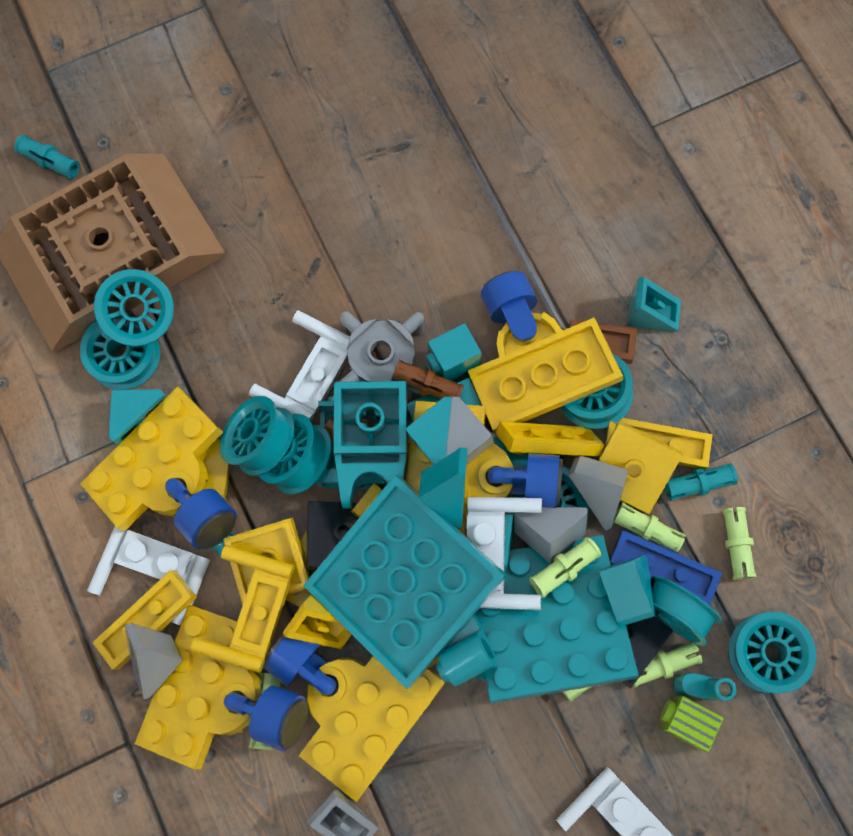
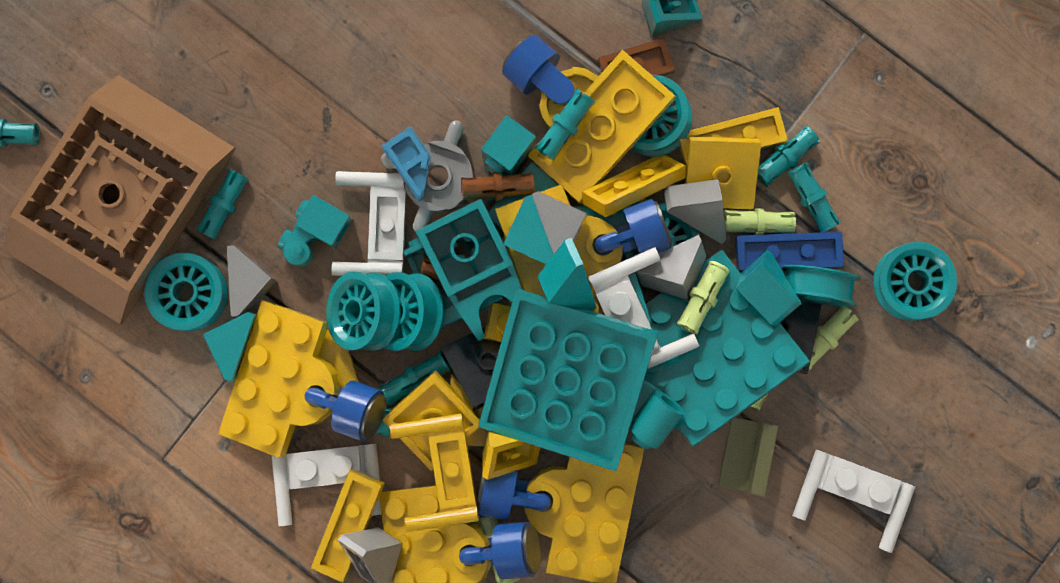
camera: 30 degrees left, 10 degrees up
(110, 287) = (195, 277): teal wheel -> none
(174, 365) = (246, 281): none -> light grey slope
(193, 292) = (222, 204): none -> teal pin
(253, 519) = (412, 378): none -> teal pin
(256, 344) = (315, 222): none -> teal brick
(363, 326) = (410, 160): none -> dark azure tile
(512, 356) = (565, 124): none -> teal pin
(539, 740) = (748, 456): none -> olive panel
(690, 722) = (871, 377): lime brick -> none
(704, 687) = (869, 341): teal piece -> none
(709, 530) = (813, 197): none -> teal pin
(739, 543) = (845, 197): yellowish green pin -> none

